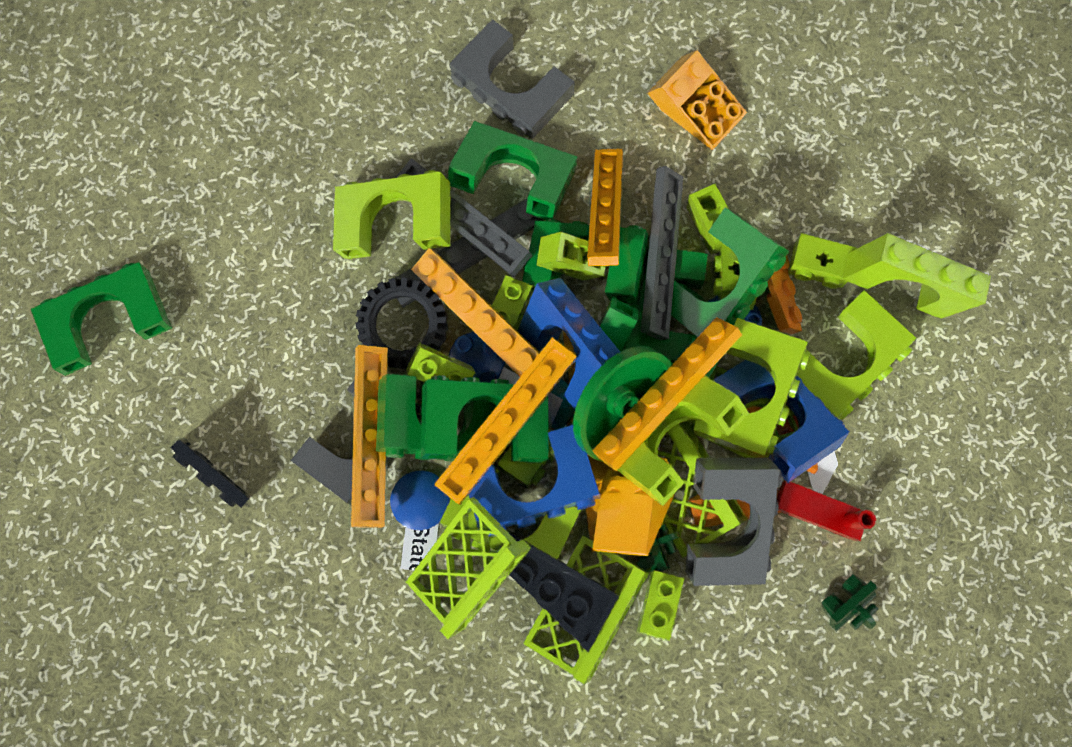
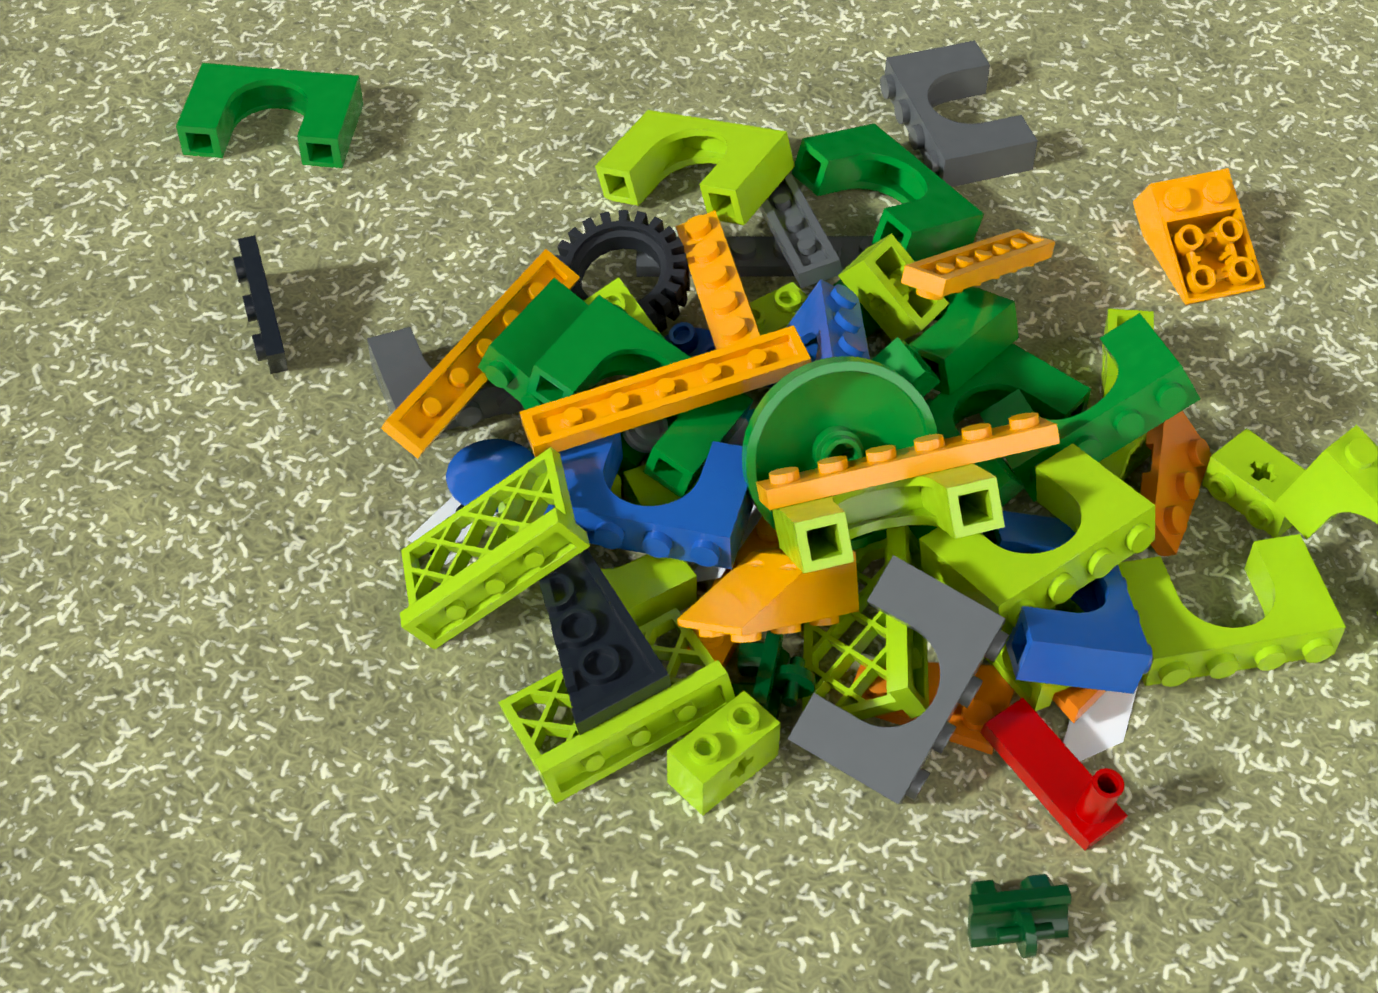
camera: 30 degrees right, 25 degrees down
(662, 254) = (1022, 347): dark grey plate -> none

